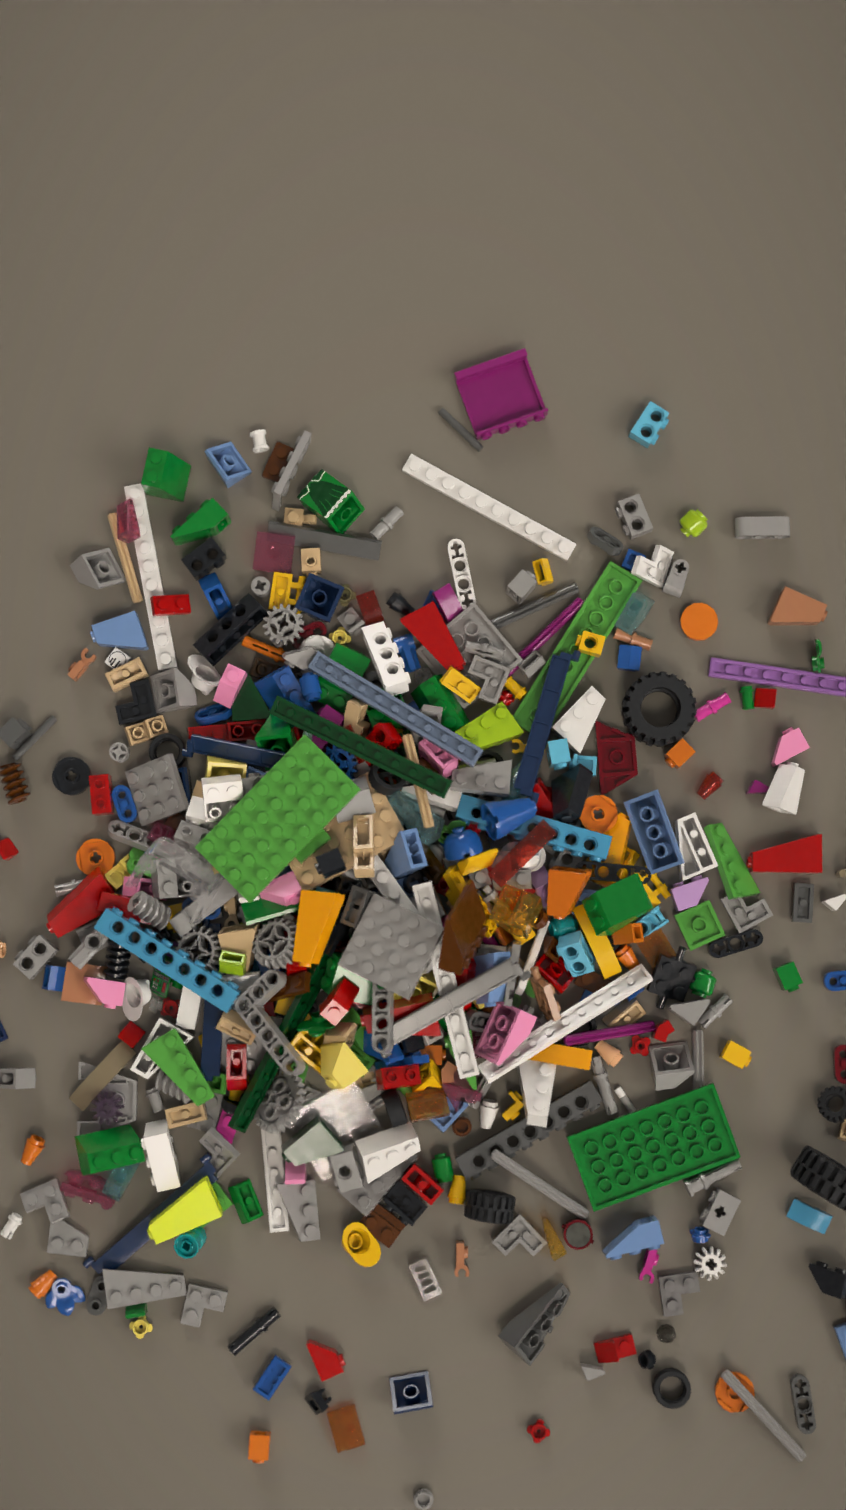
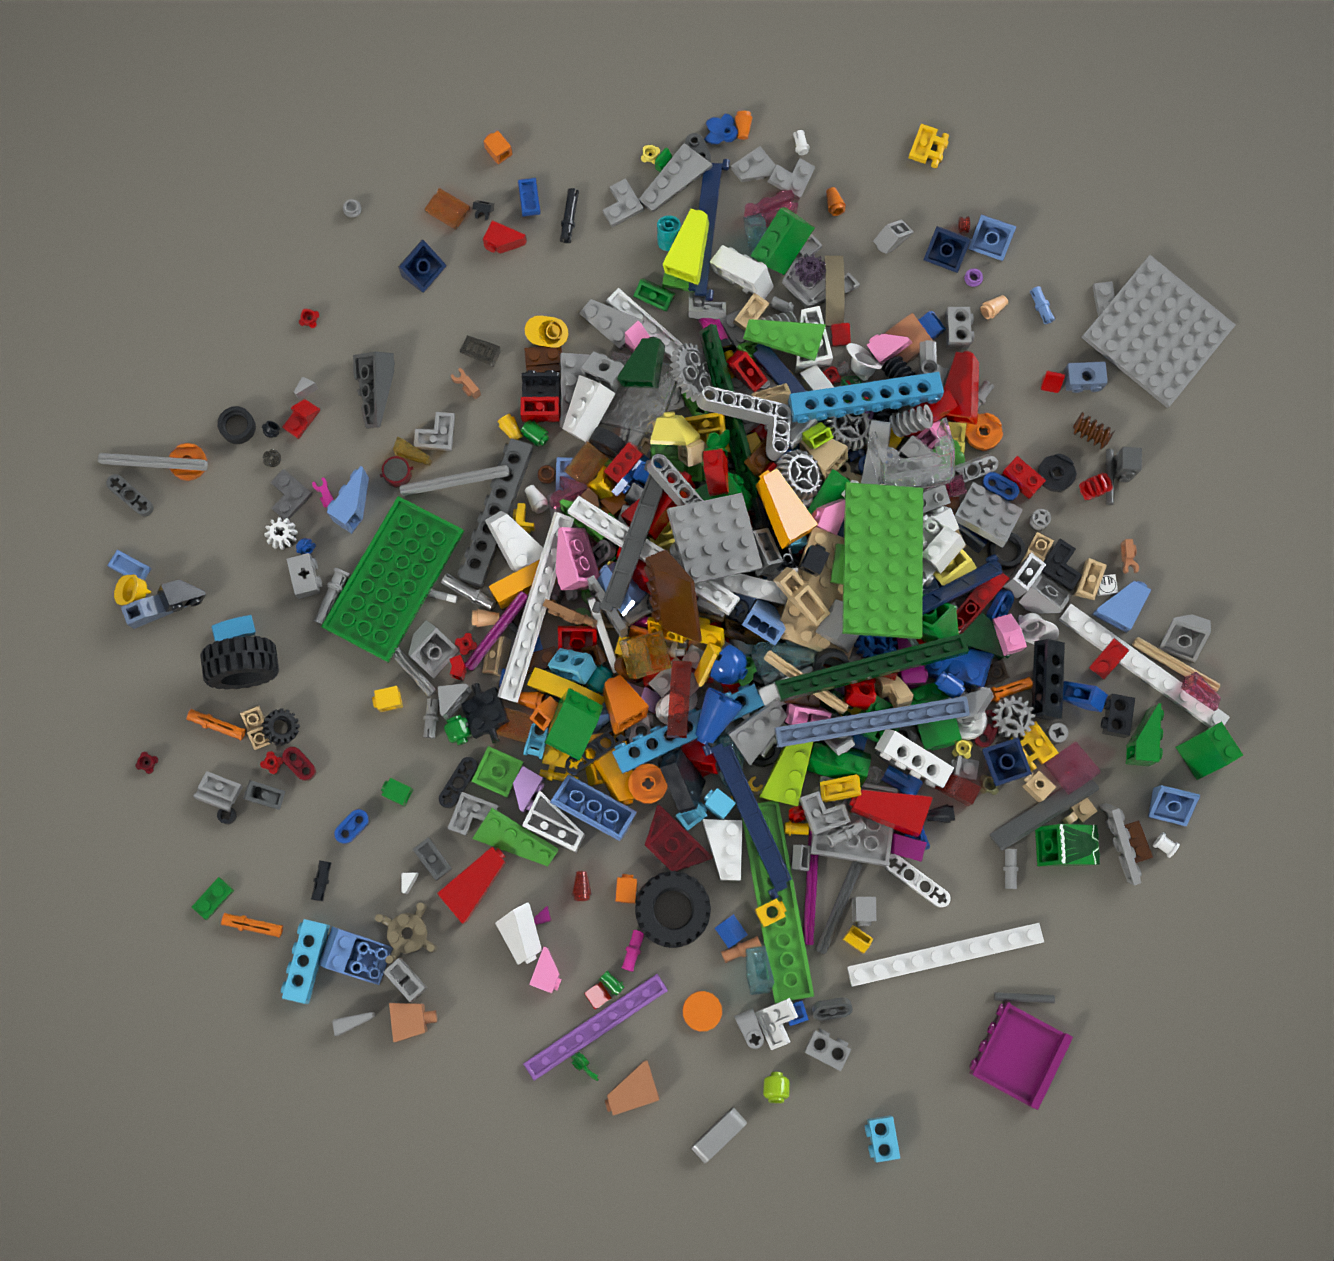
camera: 140 degrees right, 5 degrees down
(54, 738) = (1095, 486): none -> red gear
(173, 719) = (1024, 575): none -> light grey slope
(489, 1206) = (477, 432): black tyre -> none

